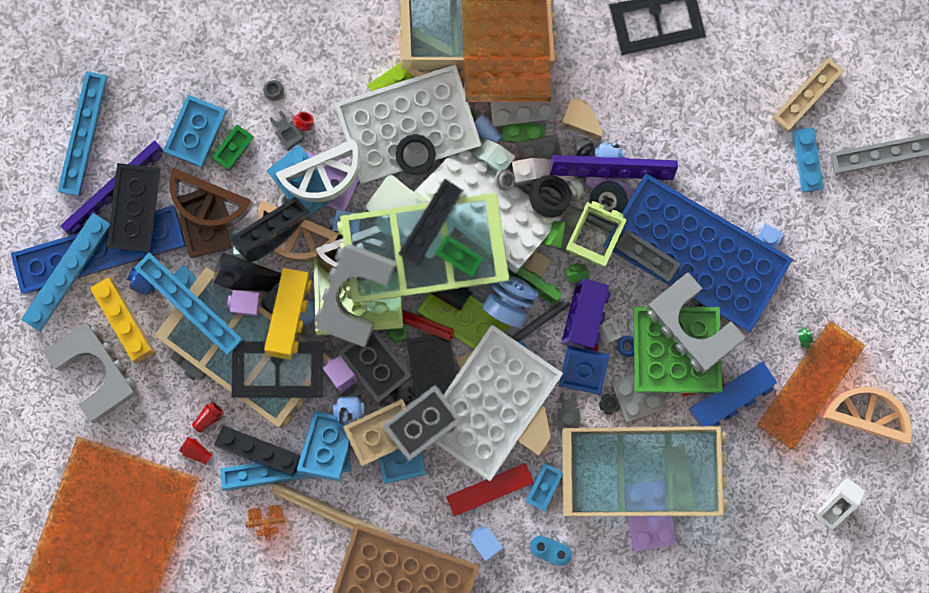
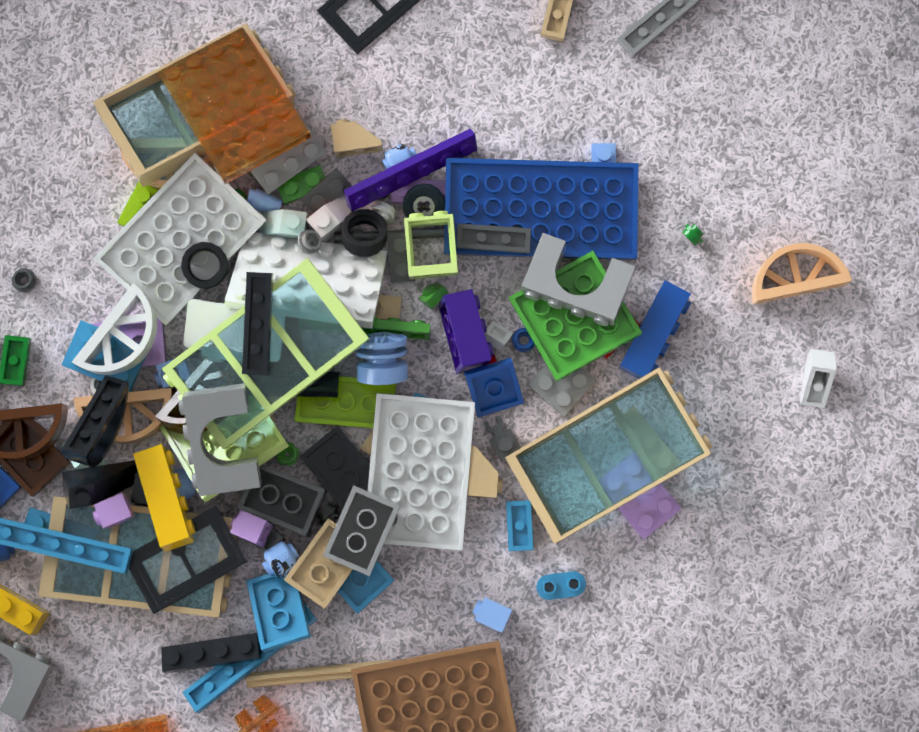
camera: 30 degrees left, 0 degrees up
(191, 370) = (98, 610): dark grey plate -> none
(194, 450) = (147, 689): red cone -> none
(208, 416) = (141, 645): red cone -> none
(287, 133) = (62, 315): dark grey plate -> none
(303, 121) = (72, 294): red plate -> none
(427, 325) = (313, 430): red axle -> none
(459, 255) = (305, 341): green plate -> none
(489, 490) = (466, 561): red tile -> none
(541, 320) = (424, 361): dark grey bar -> none
(555, 236) = (392, 271): bright green piece -> none
(583, 147) = (370, 166): dark grey plate -> none
(603, 404) = (539, 413): pearl dark grey plate -> none
(807, 160) = (598, 58): dark azure plate -> none
(811, 385) = (724, 278): clear orange plate -> none

